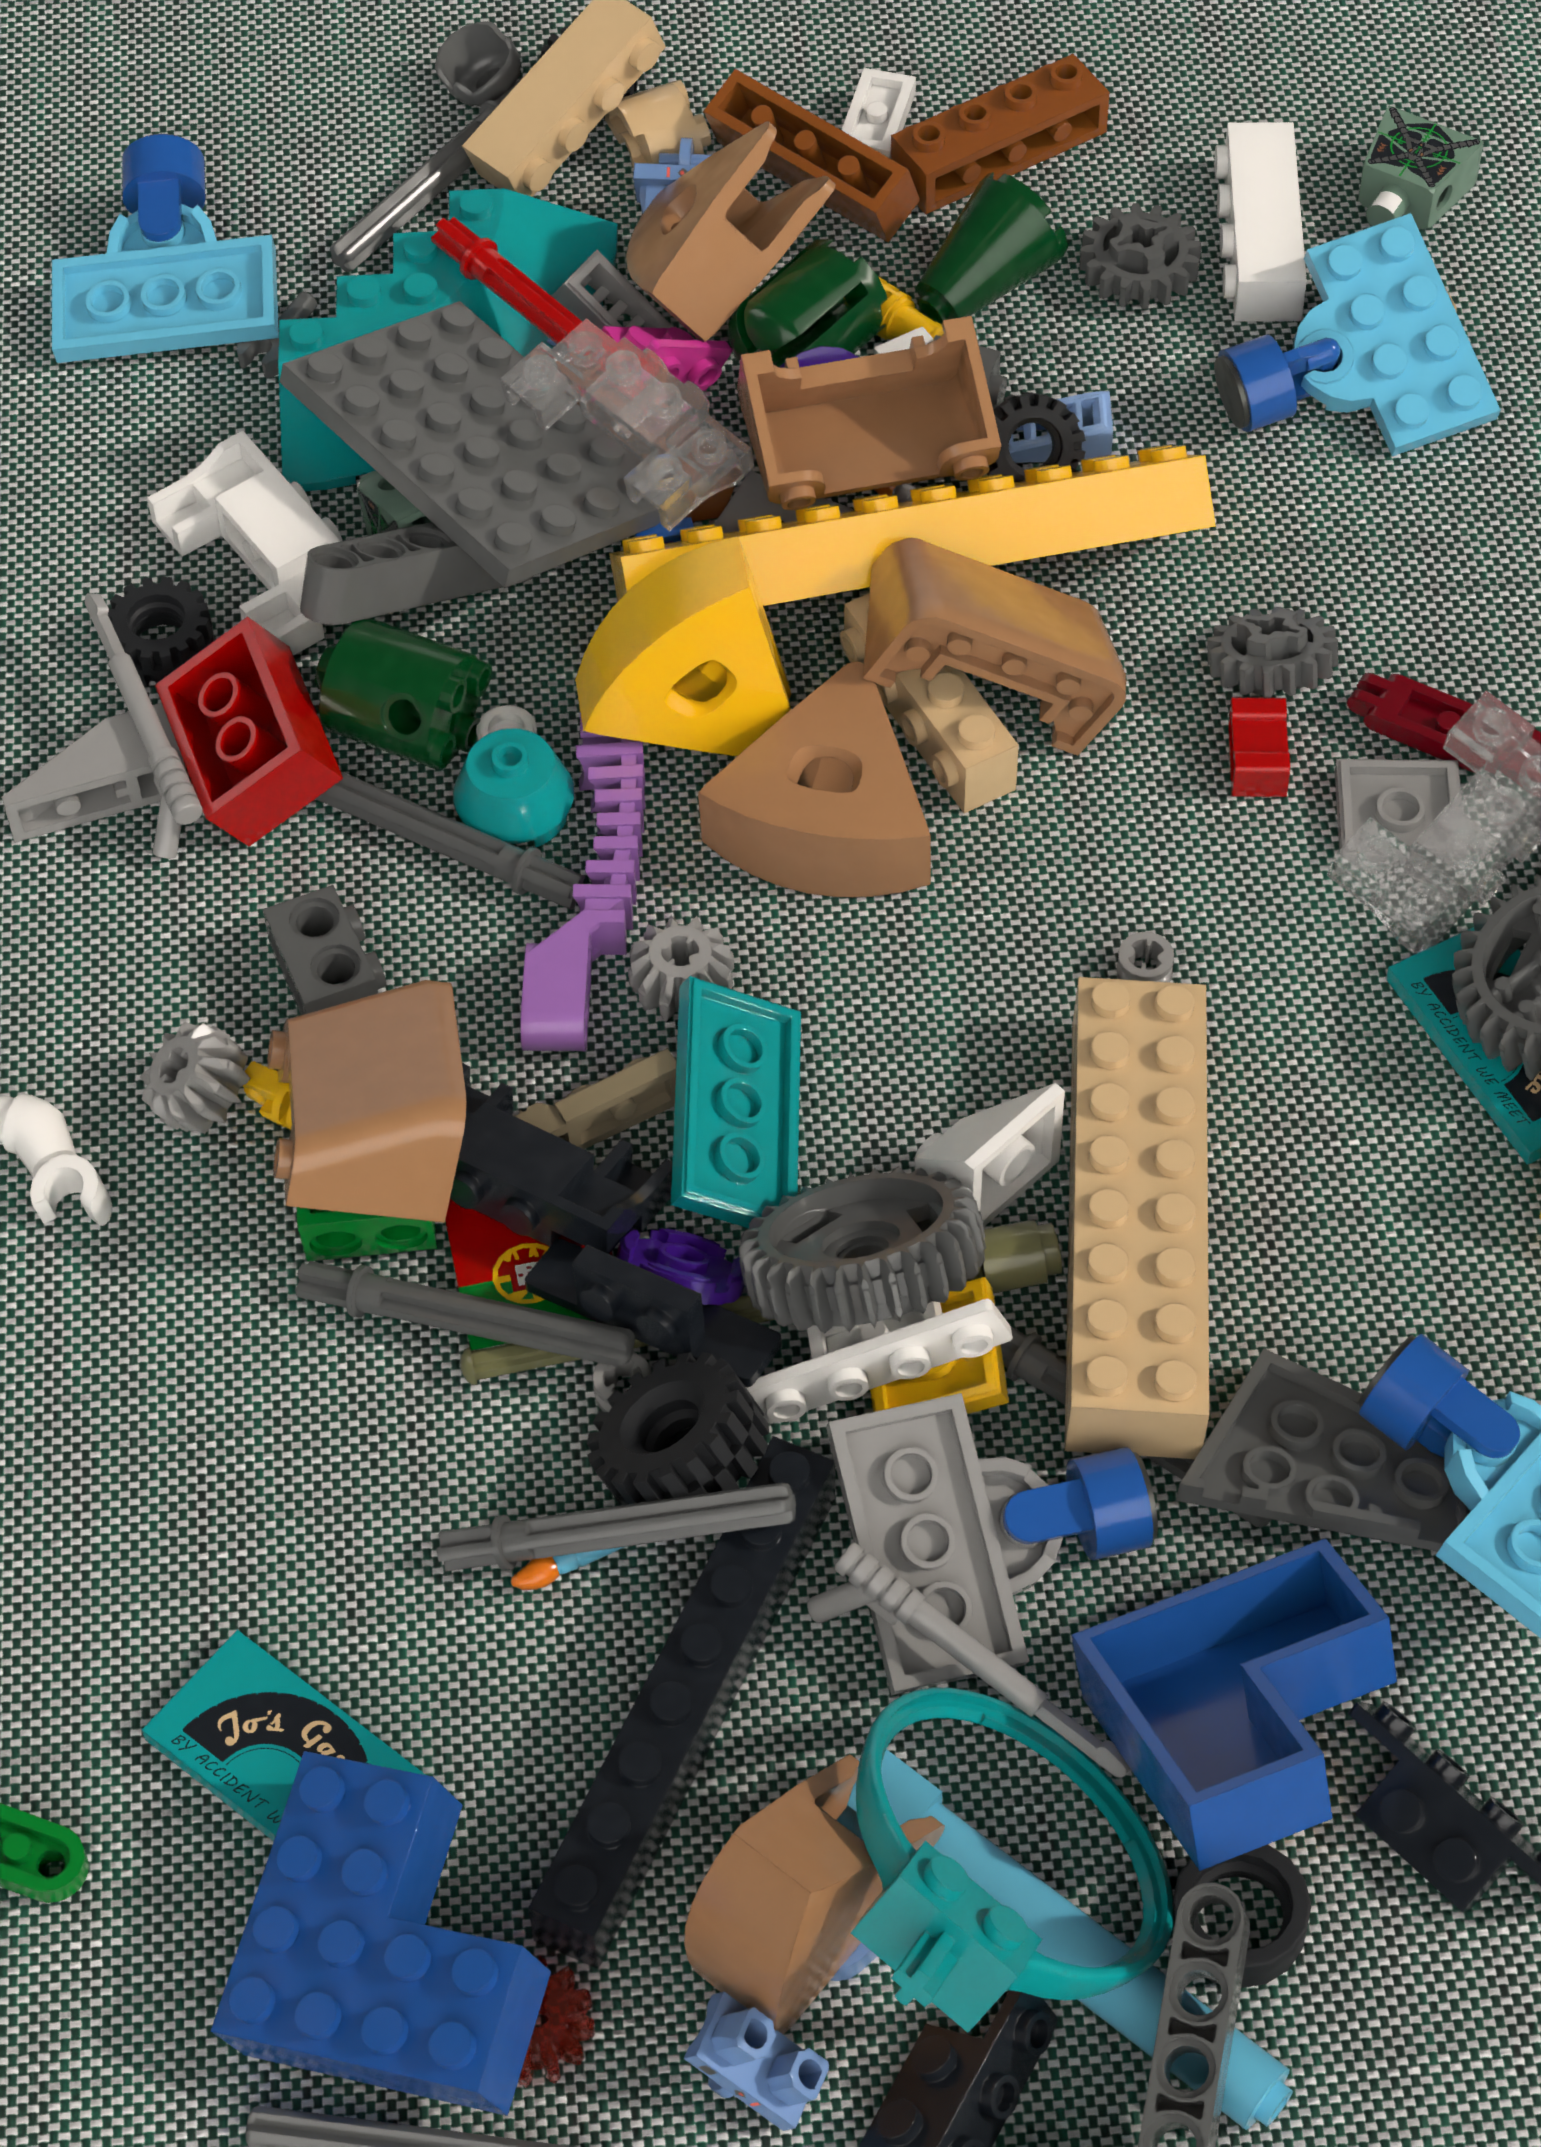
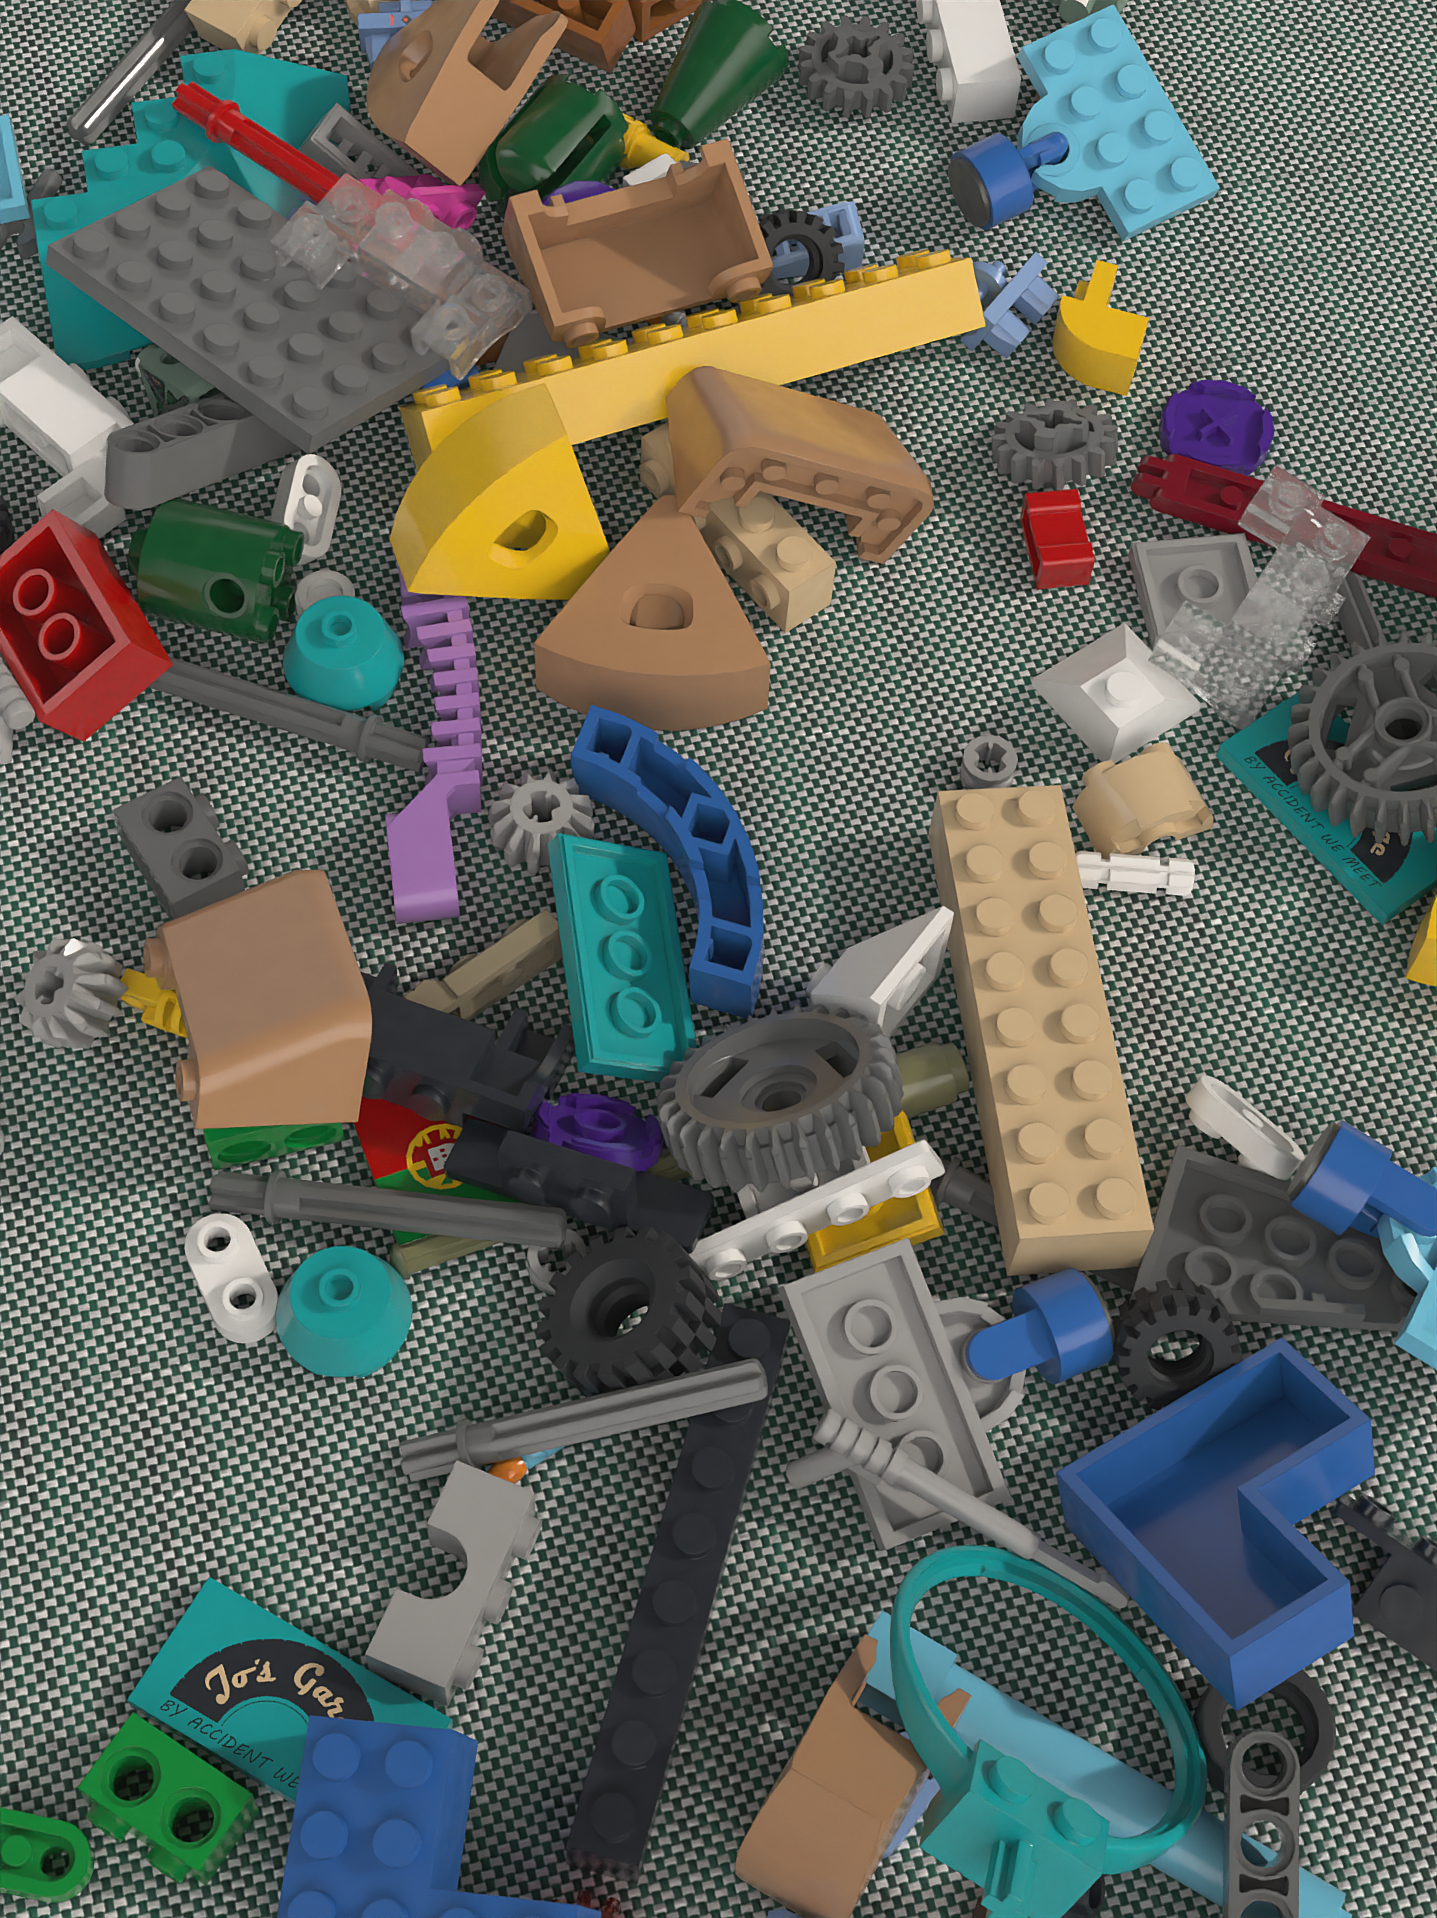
camera: 15 degrees left, 5 degrees up
(177, 1814) = (179, 1787): none -> green brick
(305, 1358) = (231, 1273): none -> white plate
(406, 1404) = (343, 1313): none -> teal cone
(442, 1716) = (433, 1641): none -> light grey arch
(507, 647) = (309, 503): none -> white plate
(823, 972) = (700, 832): none -> blue brick
(1219, 1497) = (1161, 1314): none -> black tyre
(1271, 495) = (1025, 292): none -> medium blue hips
(1273, 1083) = (1136, 873): none -> white axle
(1292, 909) = (1115, 695): none -> white slope
(1294, 1014) = (1140, 802): none -> tan cylinder
(1323, 1327) = (1261, 1144): none -> white plate
(1338, 551) = (1097, 341): none -> yellow brick
(1452, 651) = (1217, 426): none -> dark purple tile

